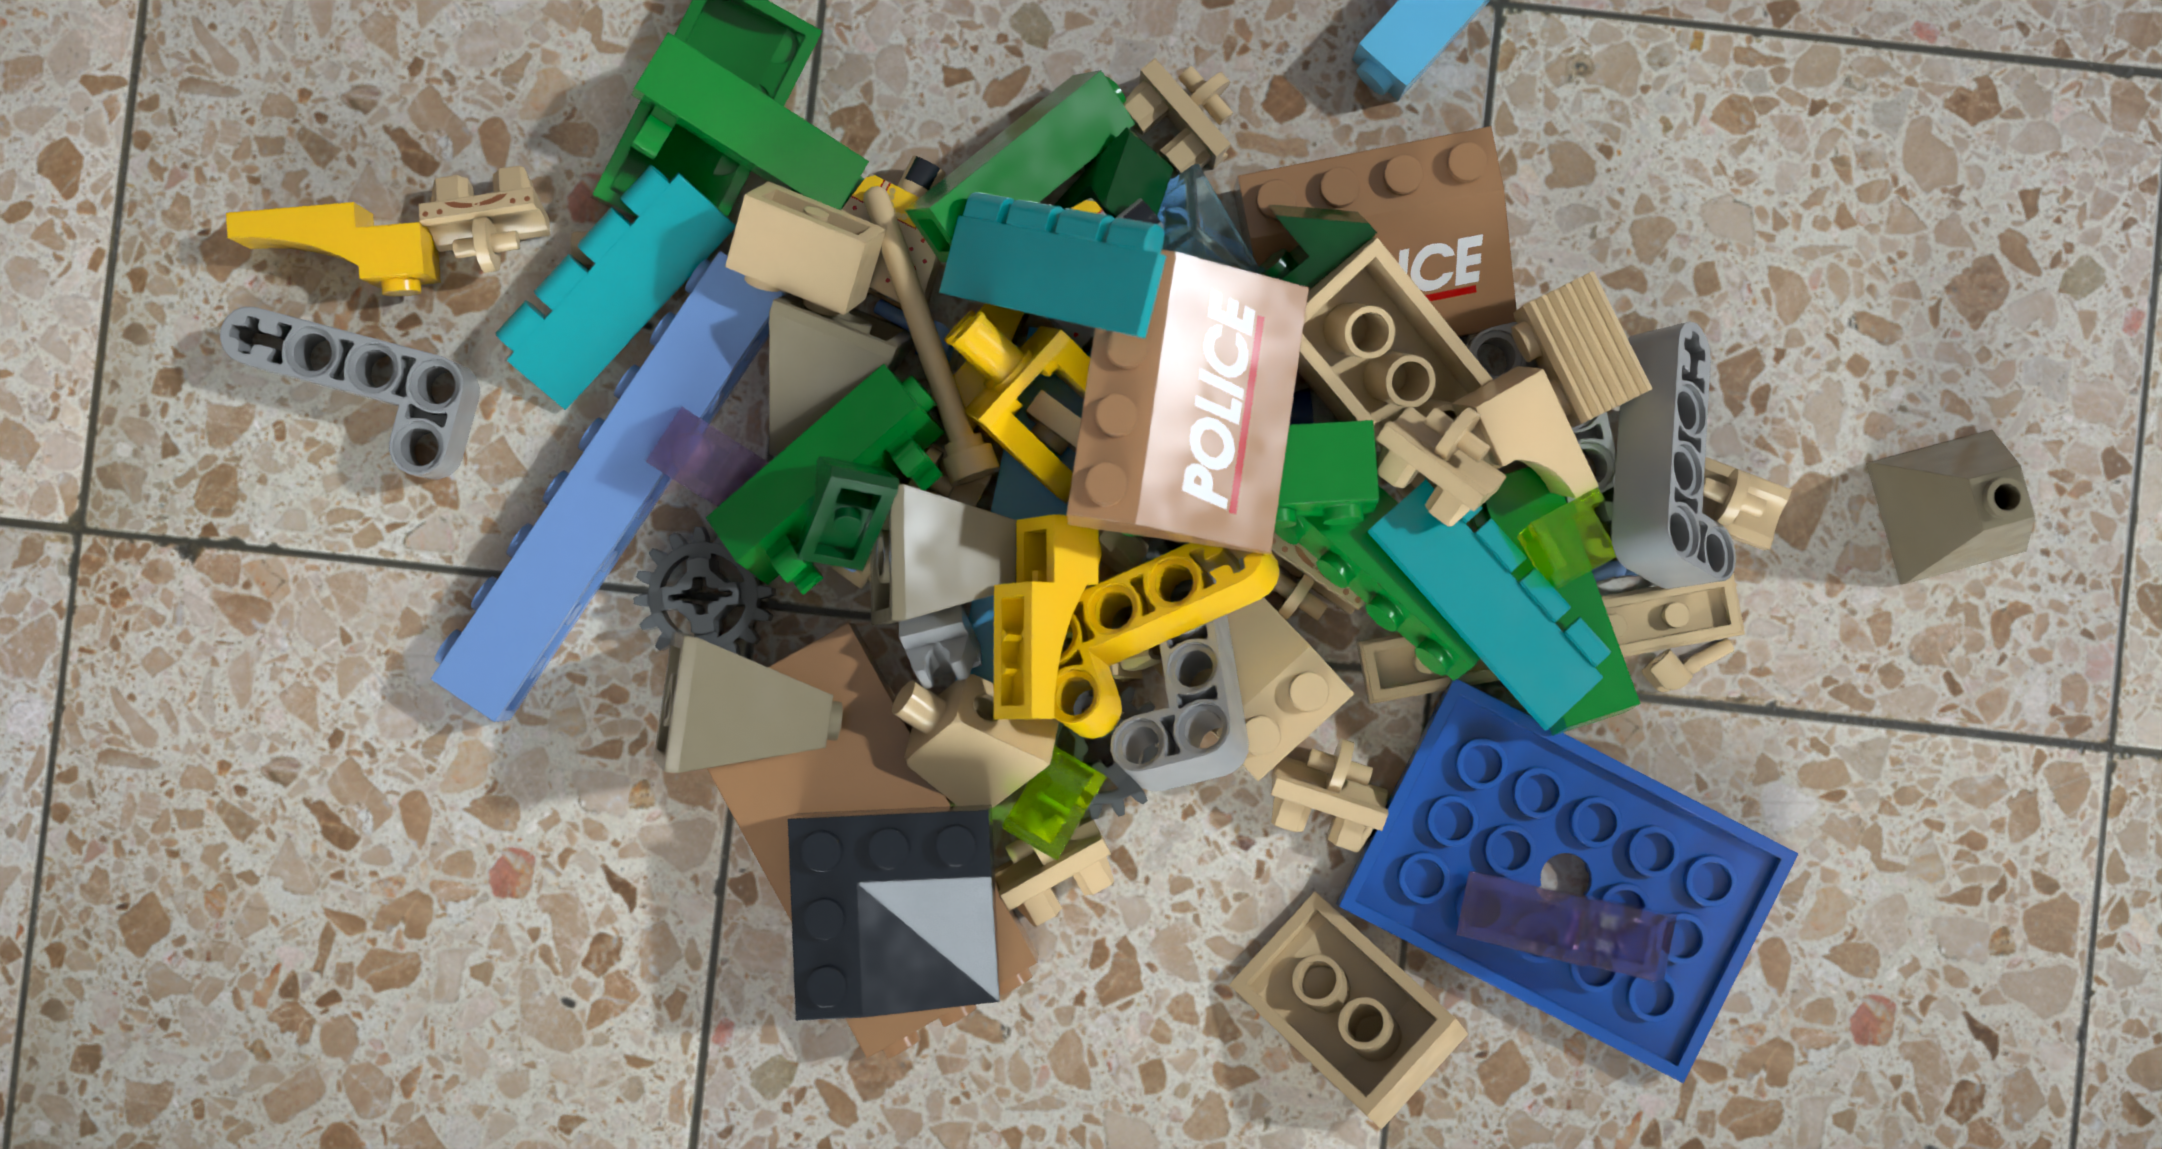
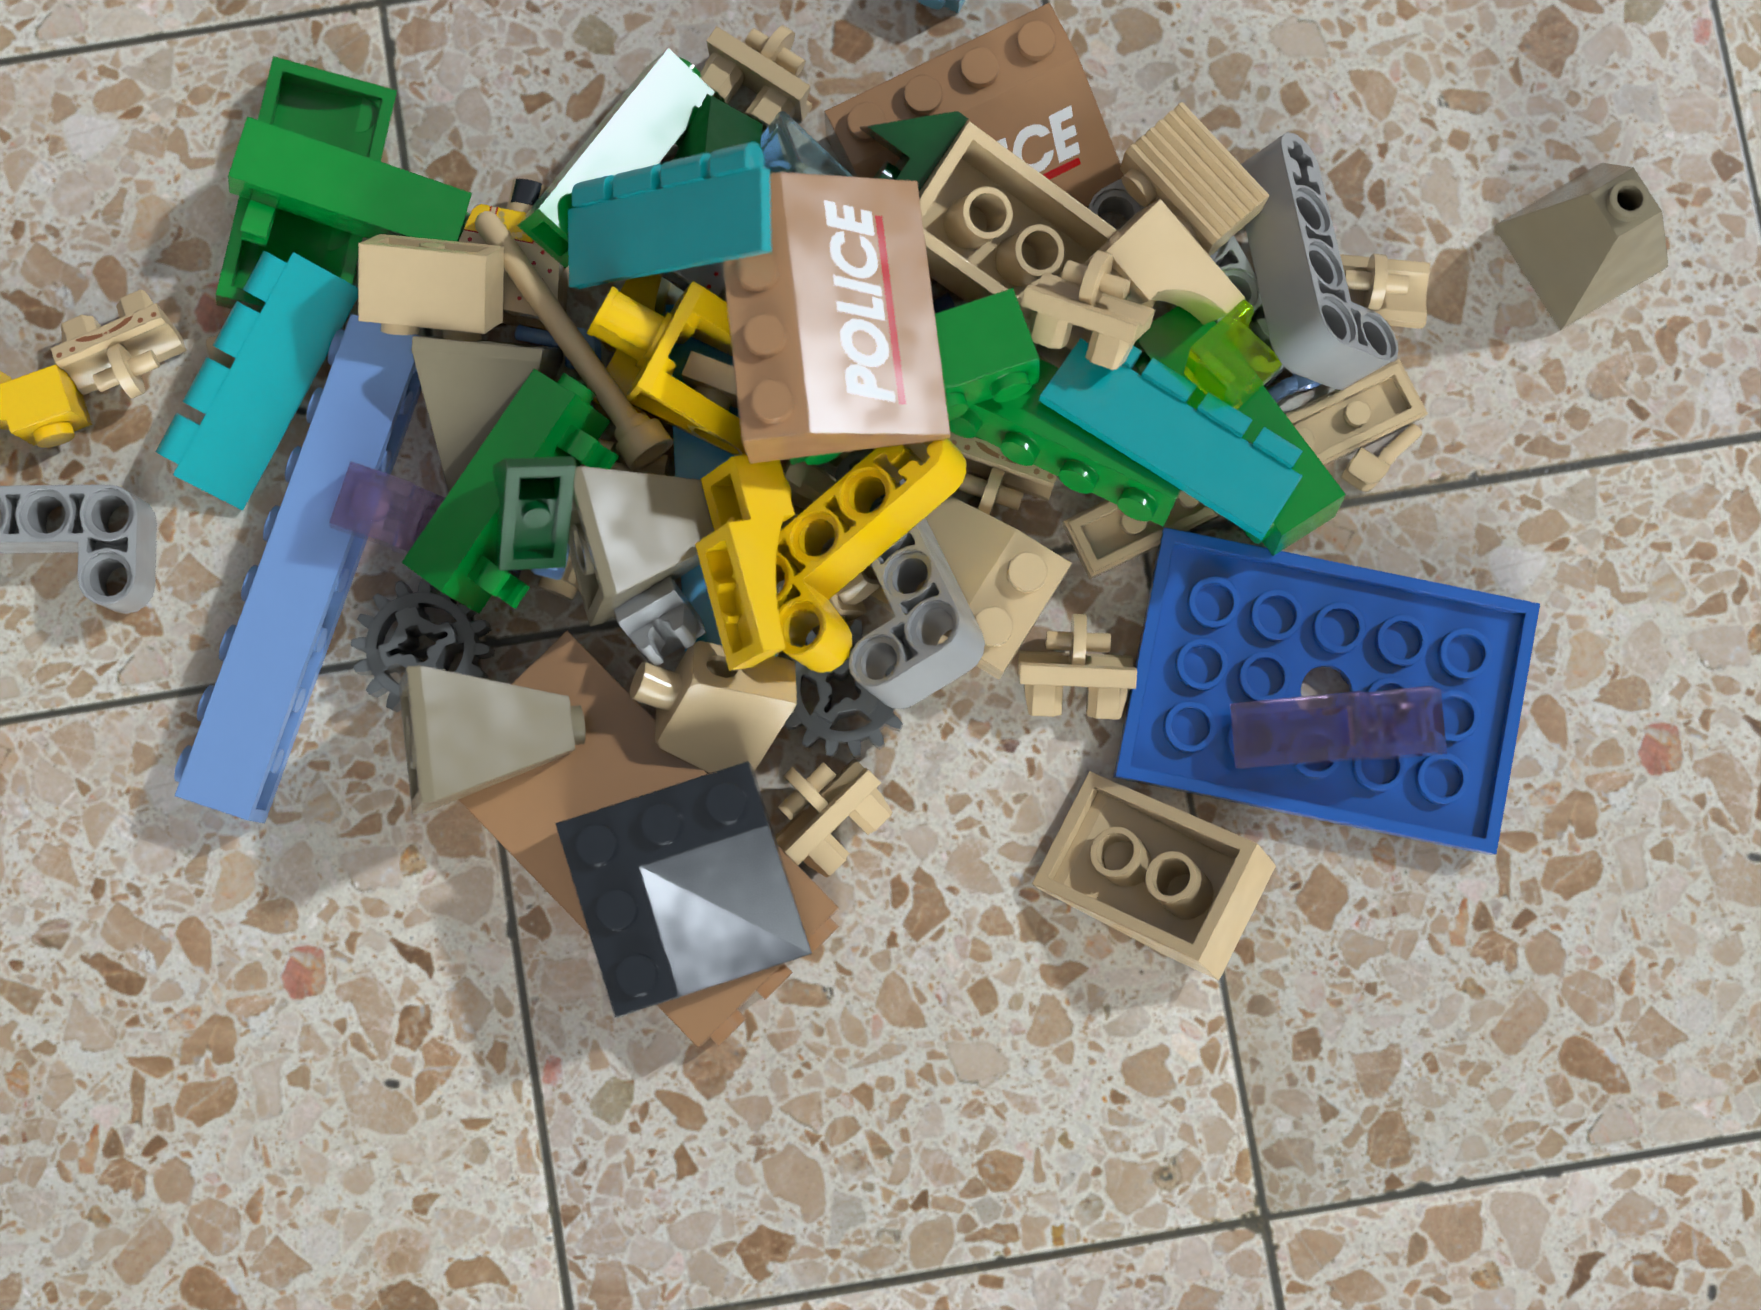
camera: 20 degrees left, 5 degrees down
(1054, 804) = (813, 745): clear neon green panel -> none

